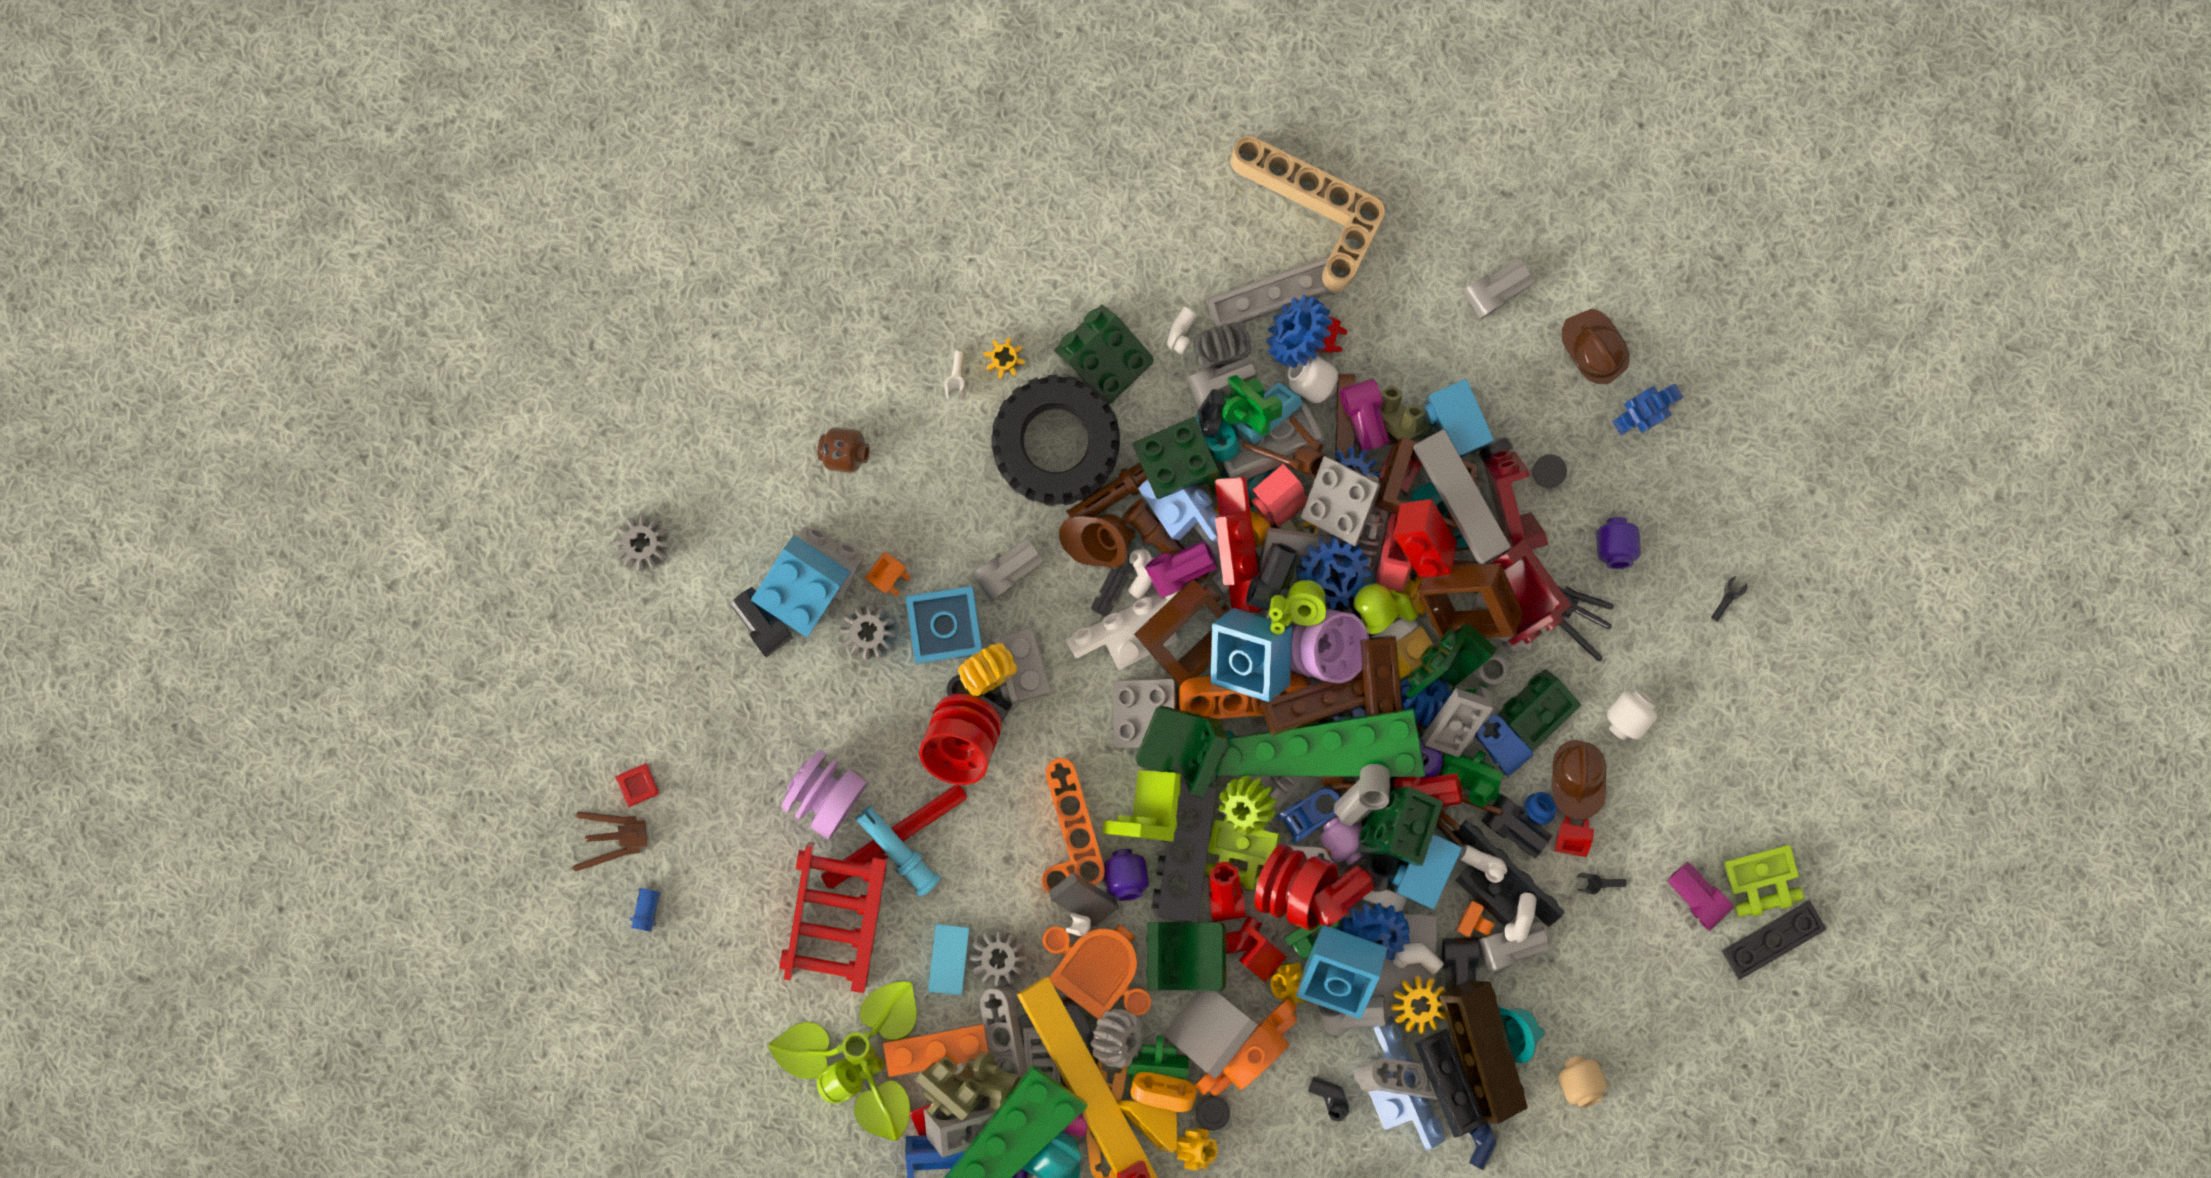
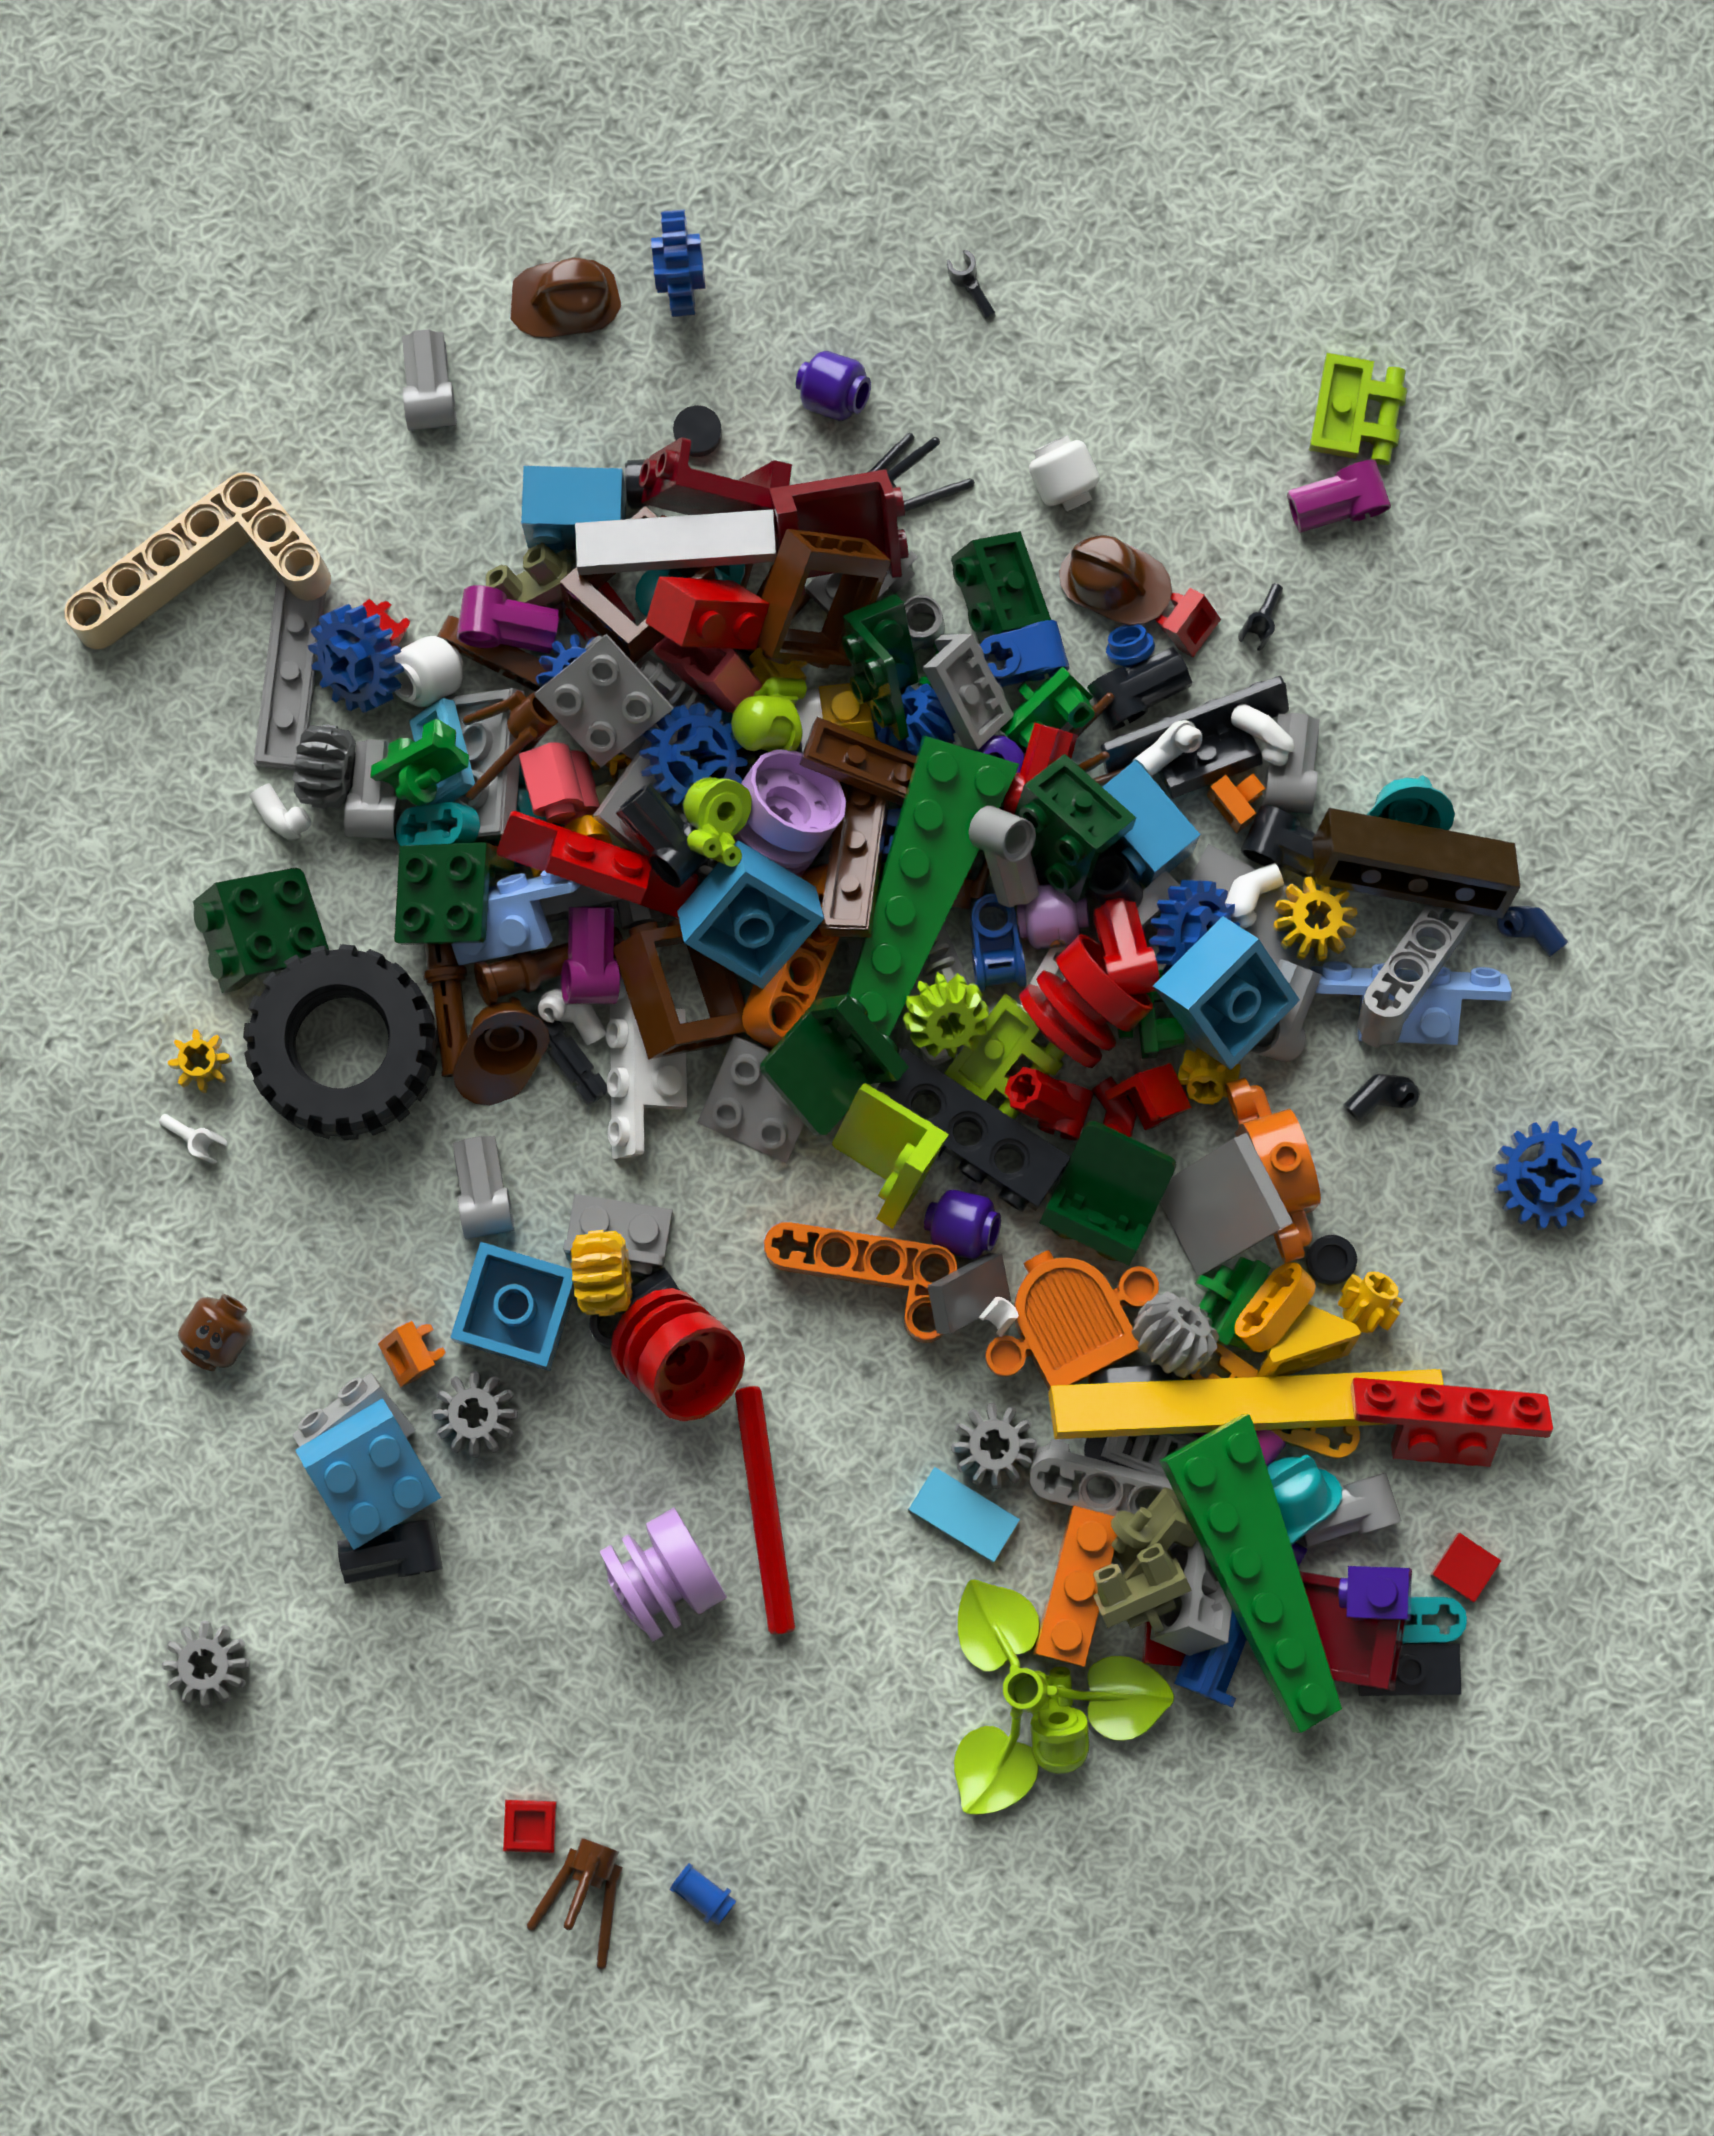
camera: 65 degrees left, 5 degrees down
(865, 905) = (880, 1618): red fence -> none
(907, 861) = (807, 1506): medium azure pin -> none
(1211, 413) = (405, 819): black tile -> none
(1450, 1083) = (1437, 926): black tile -> none
(1582, 1081) = (1512, 758): tan head -> none
(1755, 949) = (1440, 461): black tile -> none

